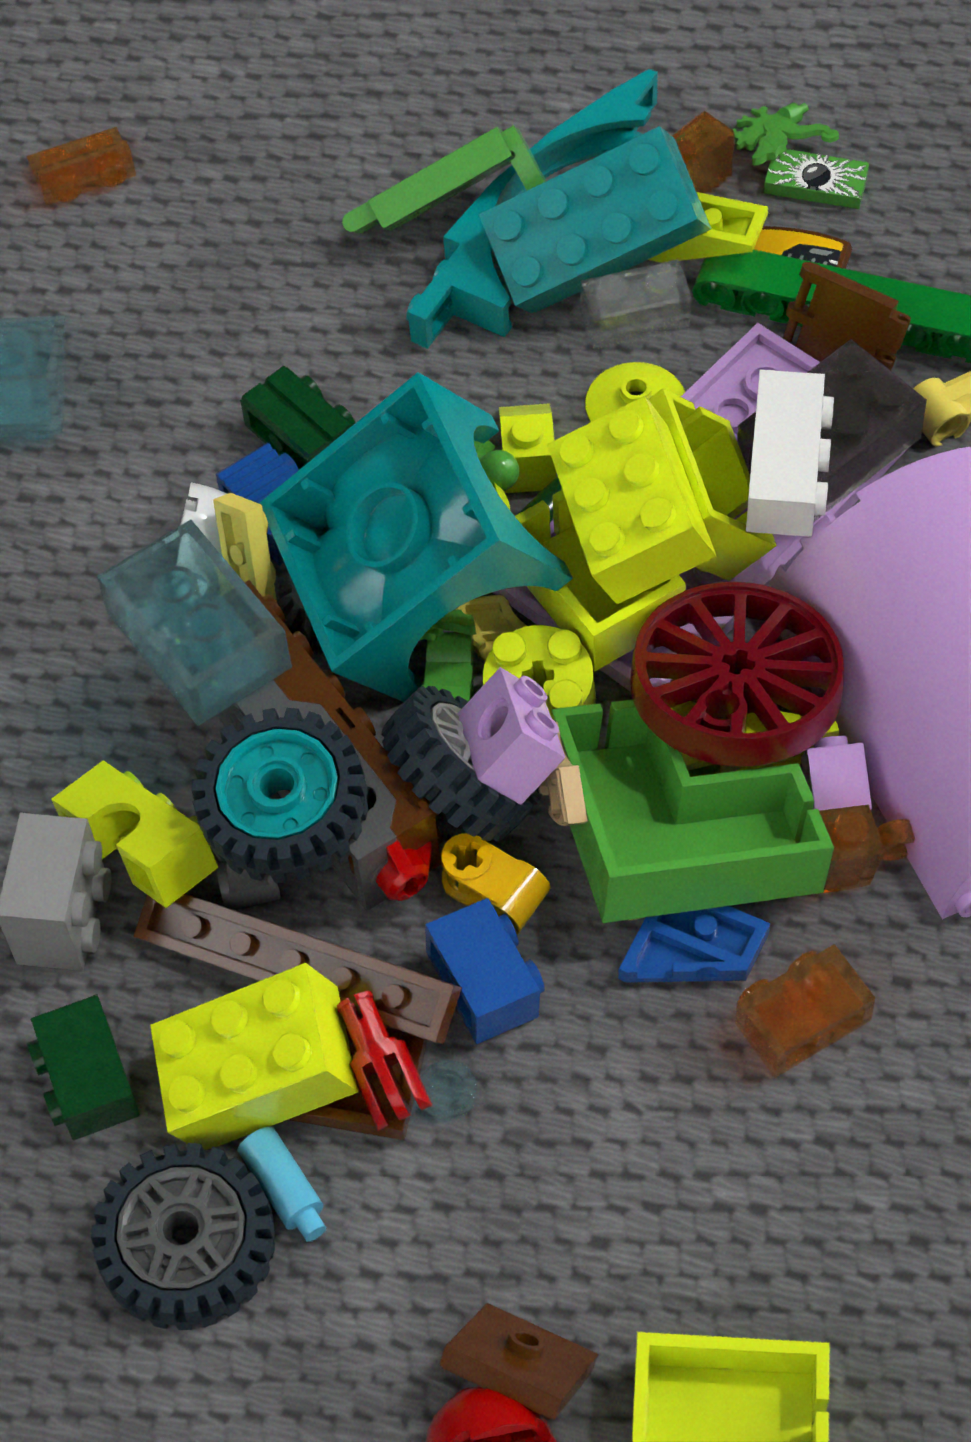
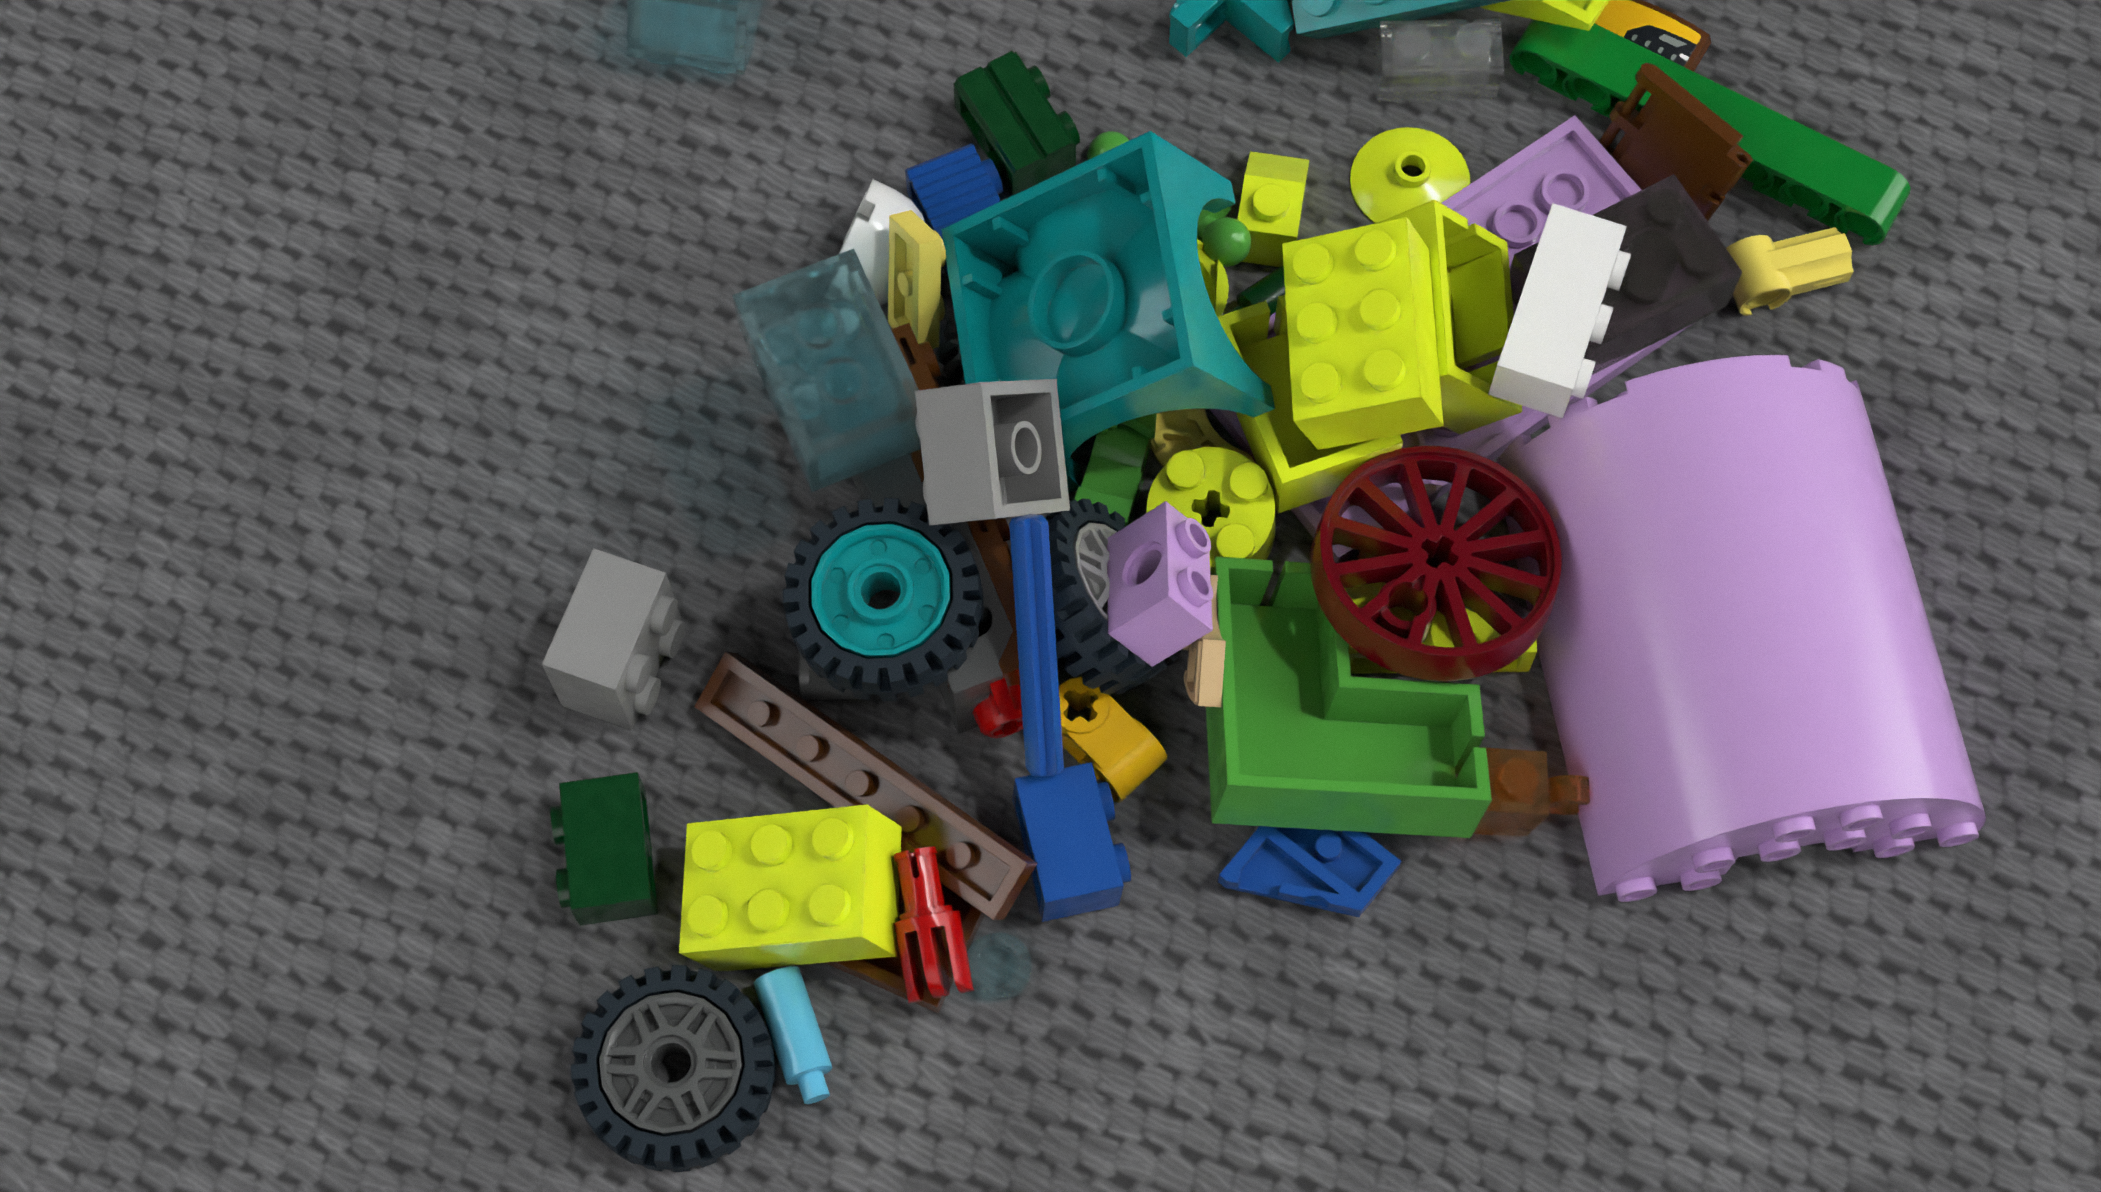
camera: 10 degrees right, 10 degrees up
(155, 840) = (704, 556): neon yellow arch -> none
(345, 650) = (991, 450): none -> light grey brick
(420, 803) = (1036, 645): none -> blue axle
(803, 1009) = (1413, 969): clear orange brick -> none
(836, 773) = (1519, 707): lavender brick -> none

